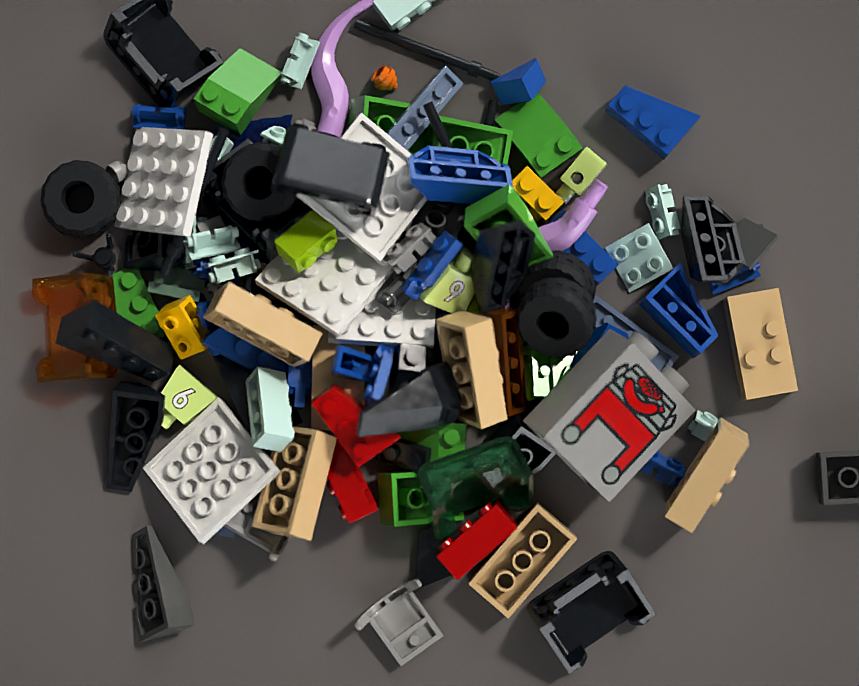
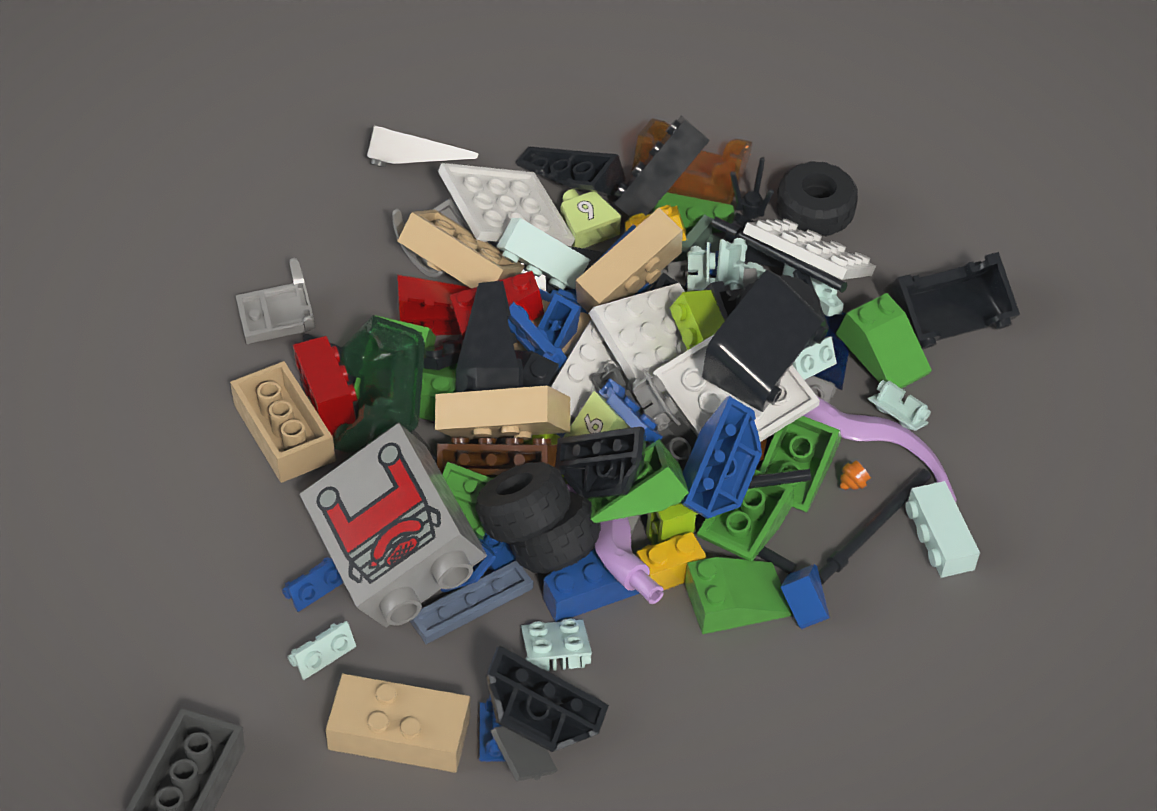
camera: 110 degrees right, 35 degrees down
(117, 170) = (837, 235): light grey hinge -> none
(158, 117) = (879, 278): blue hinge -> none
(414, 118) = (808, 495): sand blue plate -> none
(588, 607) = (198, 458): black windscreen -> none
(589, 166) = (680, 615): yellowish green torso -> none
(651, 119) = (711, 705): blue wedge -> none
(663, 223) = (612, 685): light aqua hinge -> none
(680, 313) = (468, 649): blue wedge -> none
(707, 475) = (280, 599): tan brick -> none

